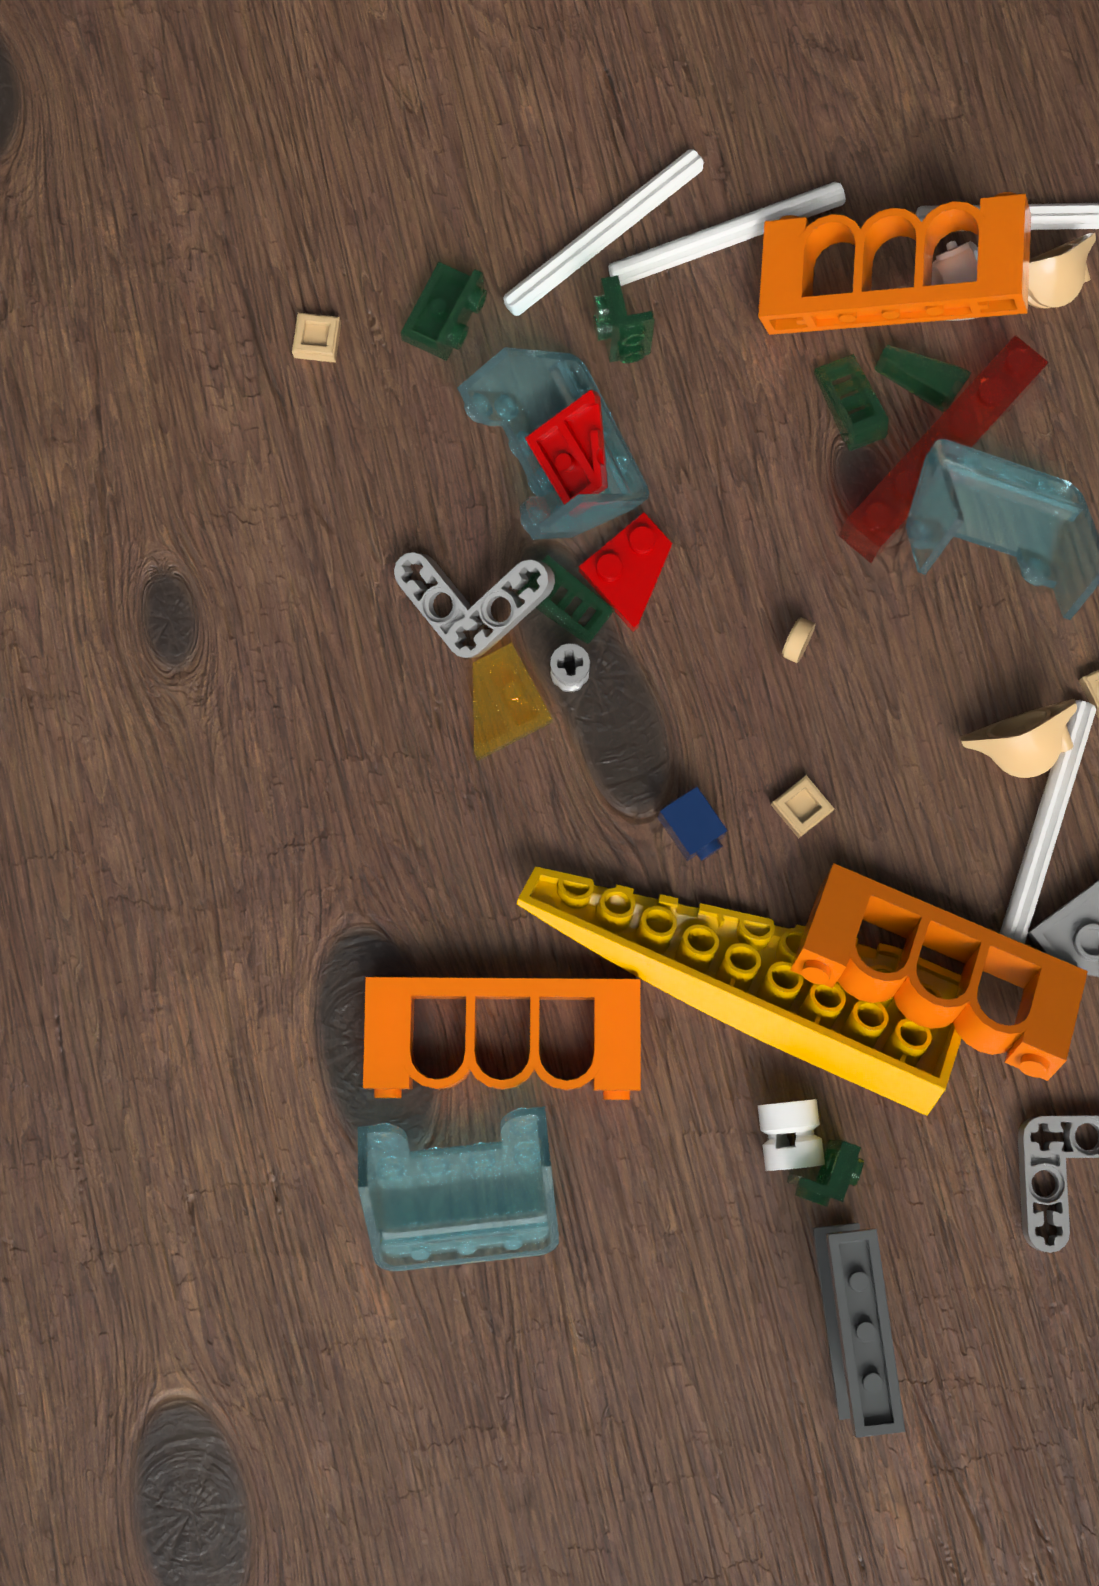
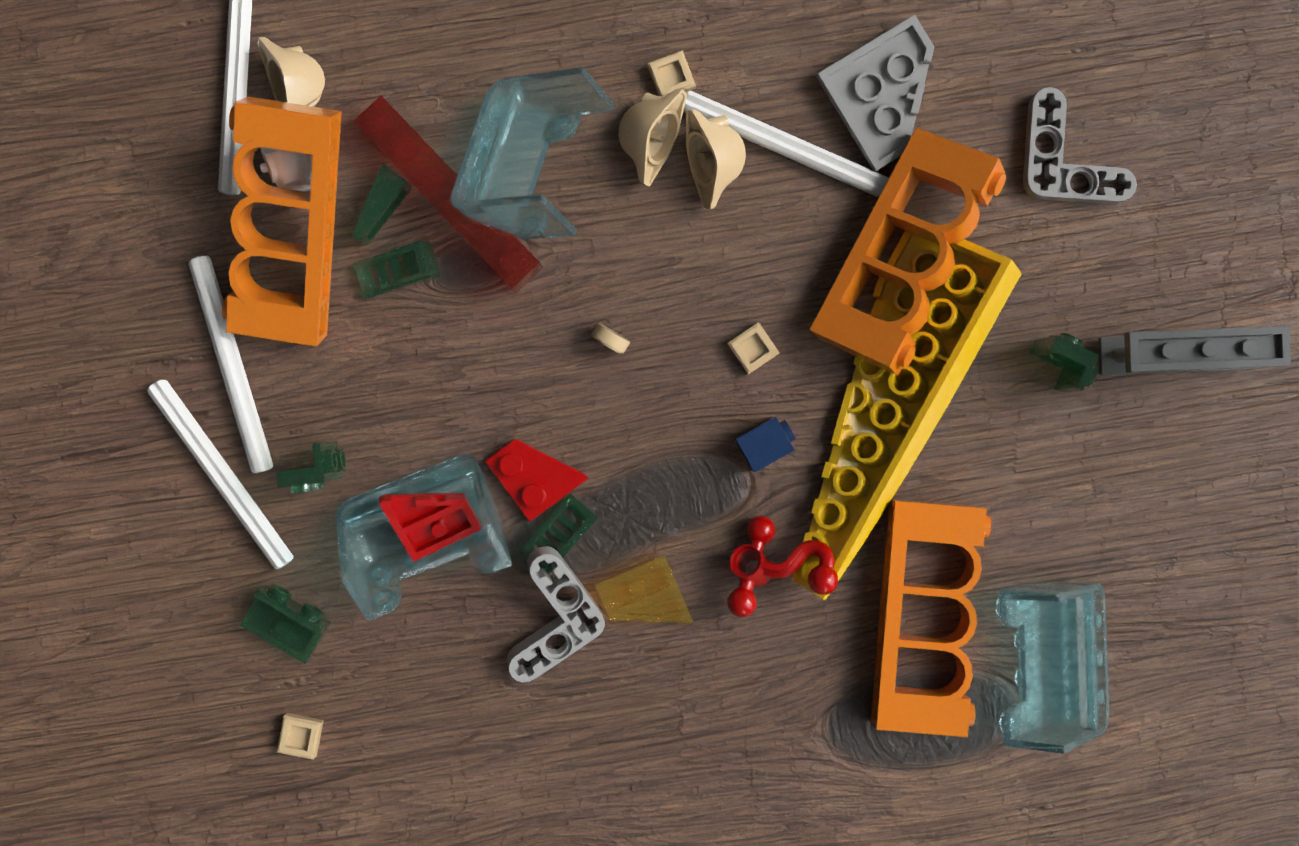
camera: 85 degrees left, 10 degrees up
(543, 827) = (760, 531): none -> red piece
(581, 662) = (611, 544): light grey bush -> none
(785, 1118) = (1032, 386): white wheel -> none
(1042, 669) = (651, 130): none -> tan hat

